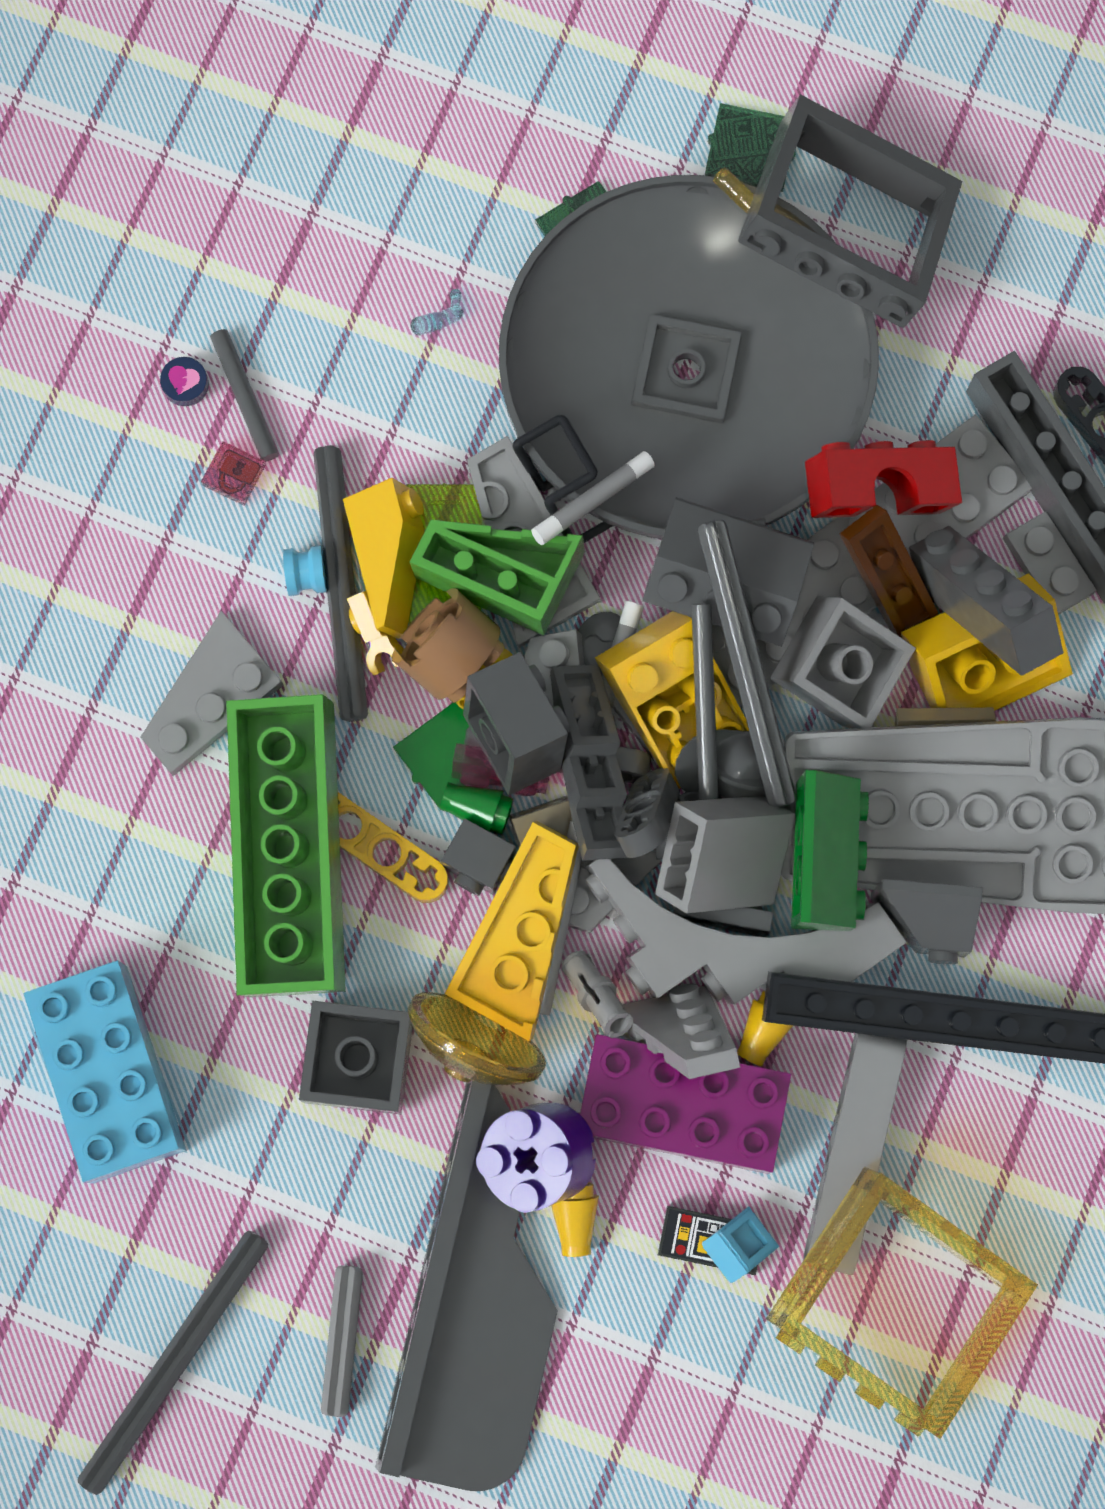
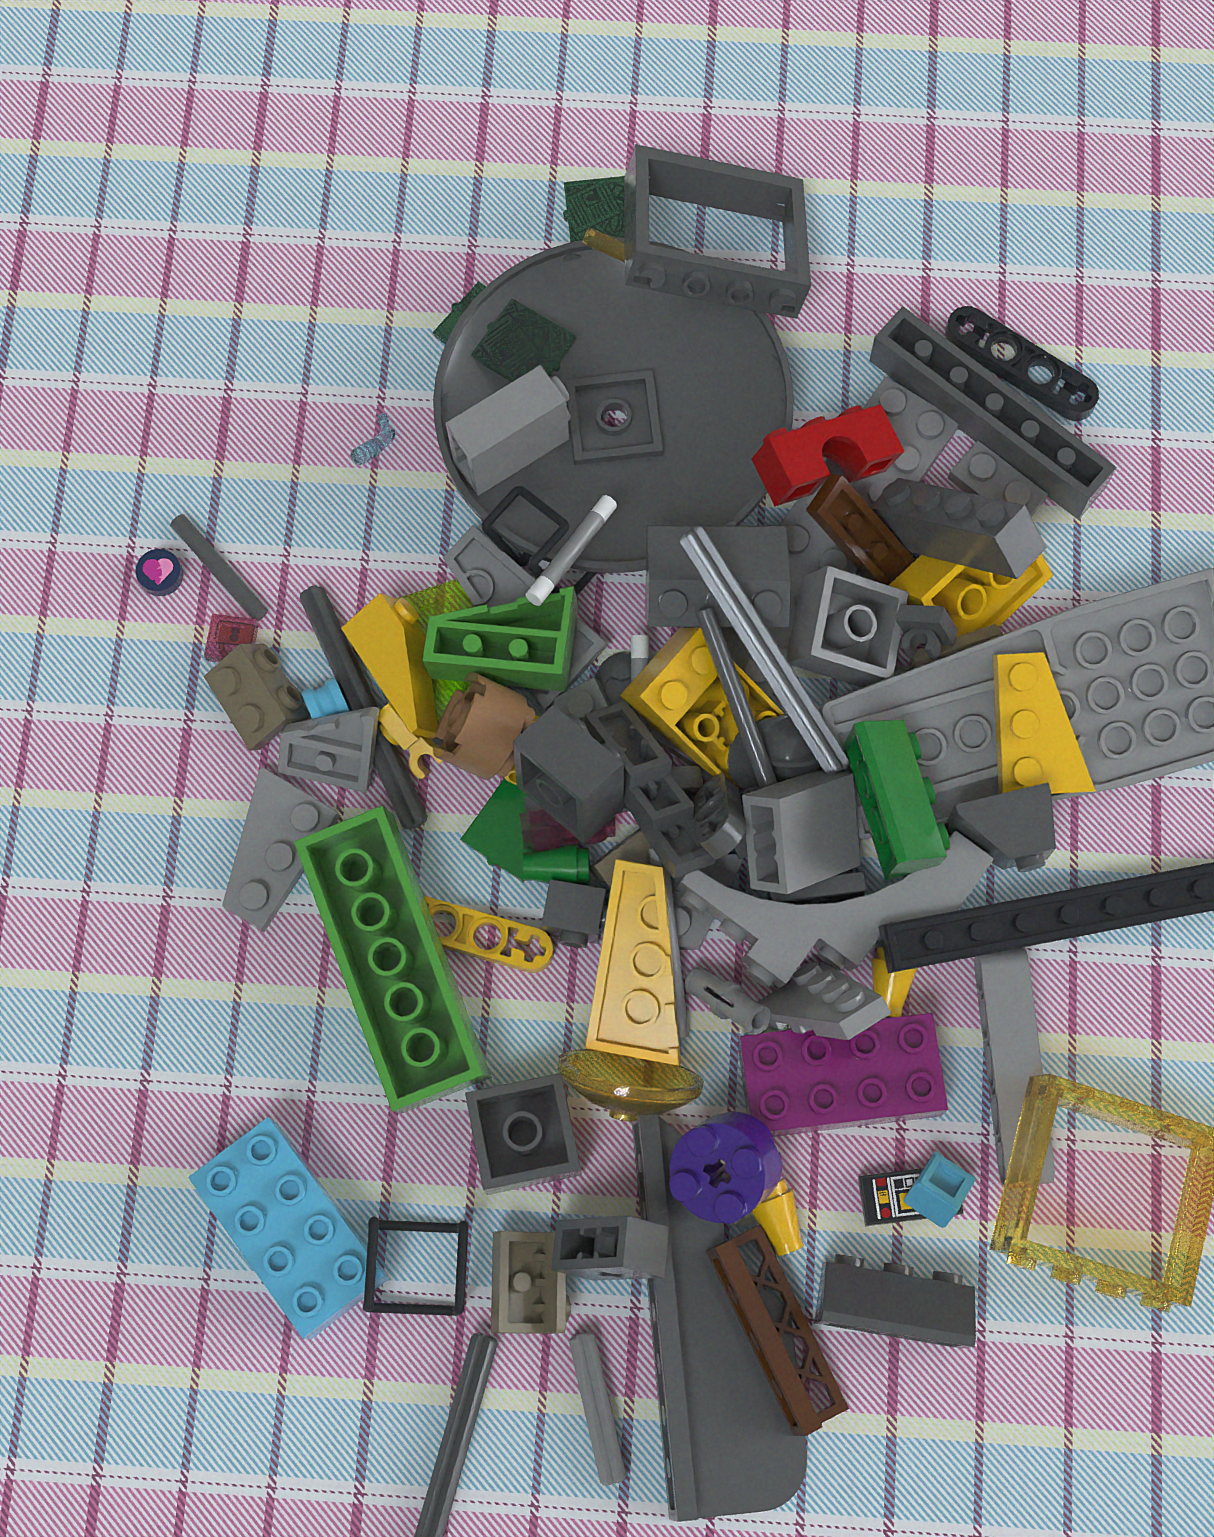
camera: 15 degrees left, 5 degrees down
(237, 1202) = (375, 1225): none -> black piece
(240, 536) = (256, 694): none -> dark tan bracket
(295, 617) = (331, 749): none -> light grey wing
(316, 1201) = (524, 1288): none -> dark tan bracket
(401, 1196) = (610, 1248): none -> dark grey brick
(521, 1328) = (766, 1334): none -> reddish brown fence
(572, 356) = (509, 429): none -> light grey brick
(619, 268) = (522, 342): none -> clear green piece
(659, 1339) = (896, 1302): none -> dark grey slope
(921, 688) = (925, 626): none -> dark grey tile
(991, 828) = (1033, 728): none -> yellow wing

